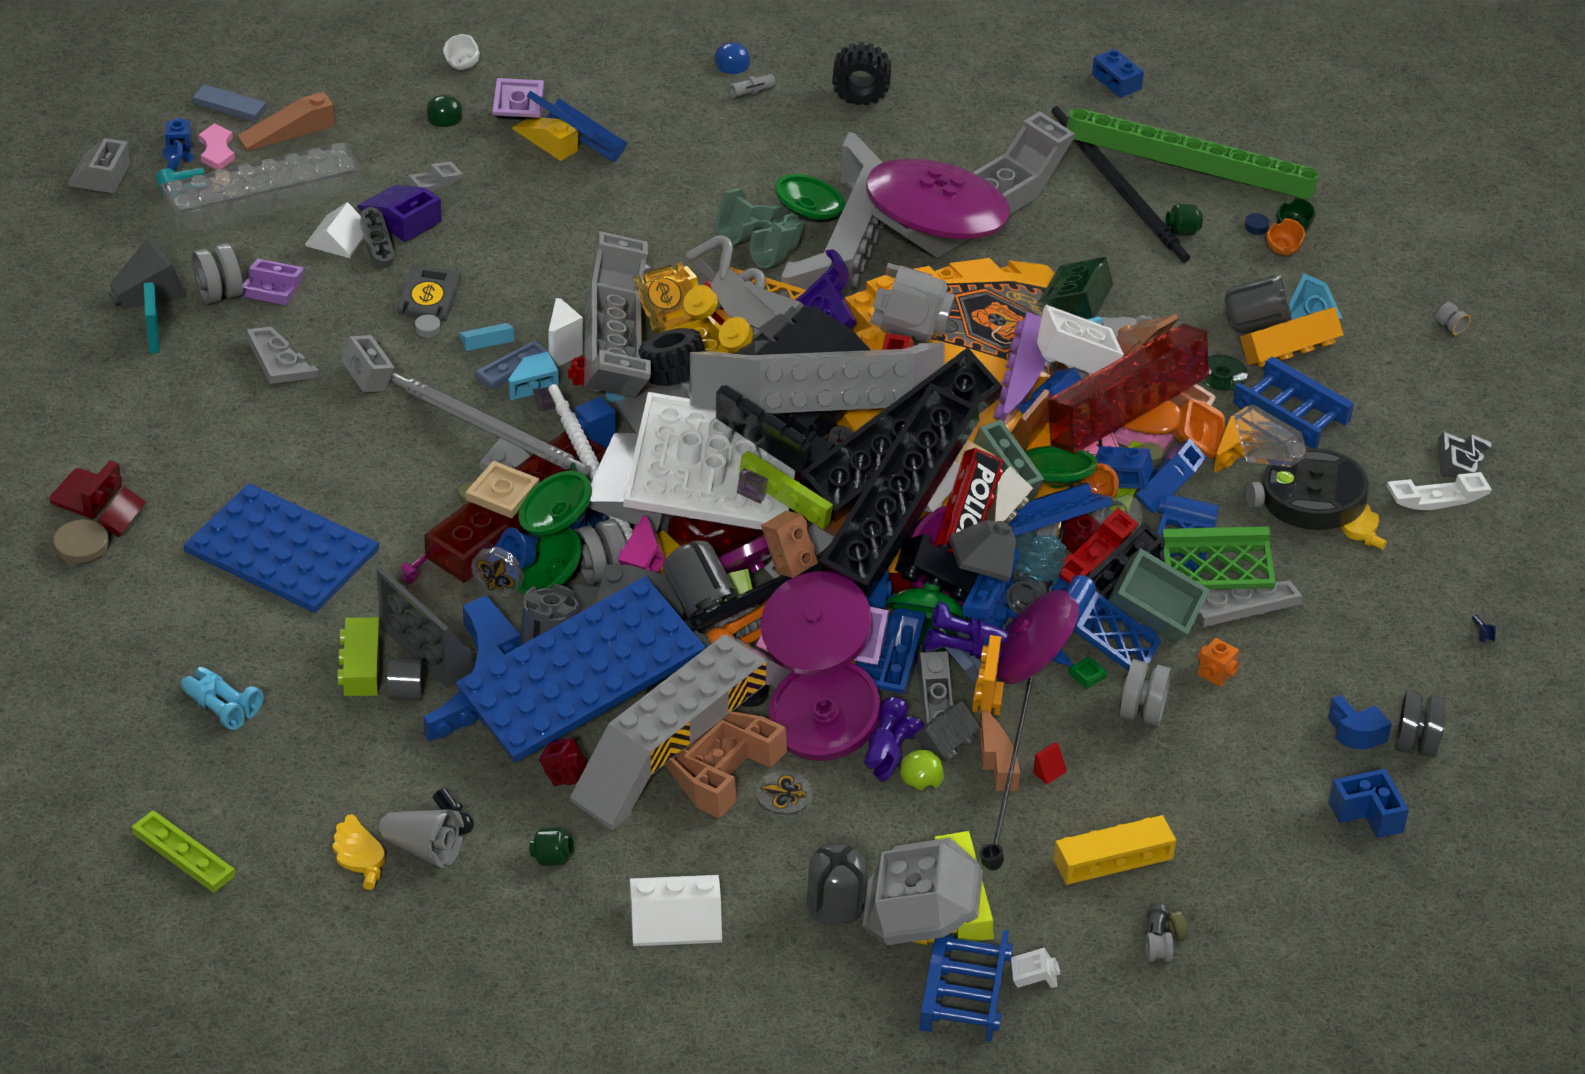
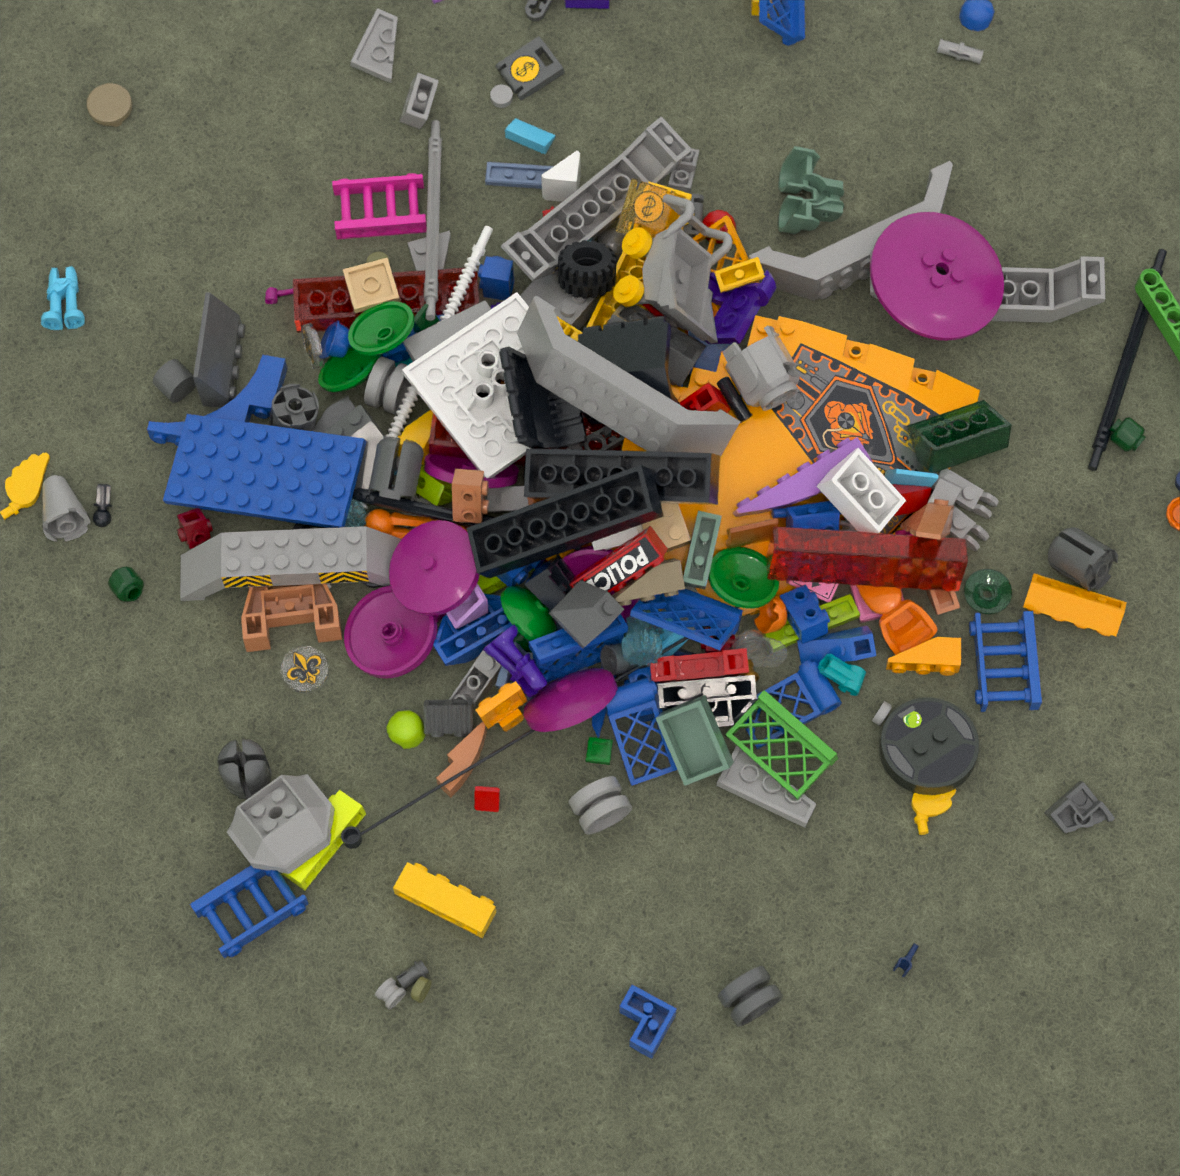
camera: 50 degrees right, 25 degrees up
(86, 491) = (152, 65): dark red bracket -> none
(121, 511) = (153, 100): dark red slope -> none
(281, 547) = (220, 209): blue plate -> none
(359, 656) = (170, 338): lime brick -> none
(430, 472) = (381, 226): none -> dark pink fence
(533, 373) = (516, 197): medium azure slope -> none
(543, 399) = (510, 223): clear purple tile -> none
(643, 548) = (399, 413): dark pink slope -> none
(675, 910) = (143, 697): white slope -> none
(752, 485) = (490, 430): tile -> none
(789, 491) = (508, 461): lime plate -> none
(797, 283) = (739, 274): none -> yellow slope
(809, 197) = (878, 183): green dish -> none
(865, 59) = (1038, 107): black tyre -> none
(887, 739) = (390, 697): dark purple piece -> none
(1035, 967) = (301, 936): white bracket -> none
(1156, 452) = (843, 618): olive tile -> none
(1196, 488) = (847, 676): none -> teal piece
(1218, 662) = (682, 830): orange brick -> none
(1268, 438) = (929, 681): clear slope -> none
(1310, 297) = (1131, 587): medium azure slope -> none
(1358, 729) = (718, 961): blue brick -> none
(1436, 496) = (1016, 827): white slope -> none

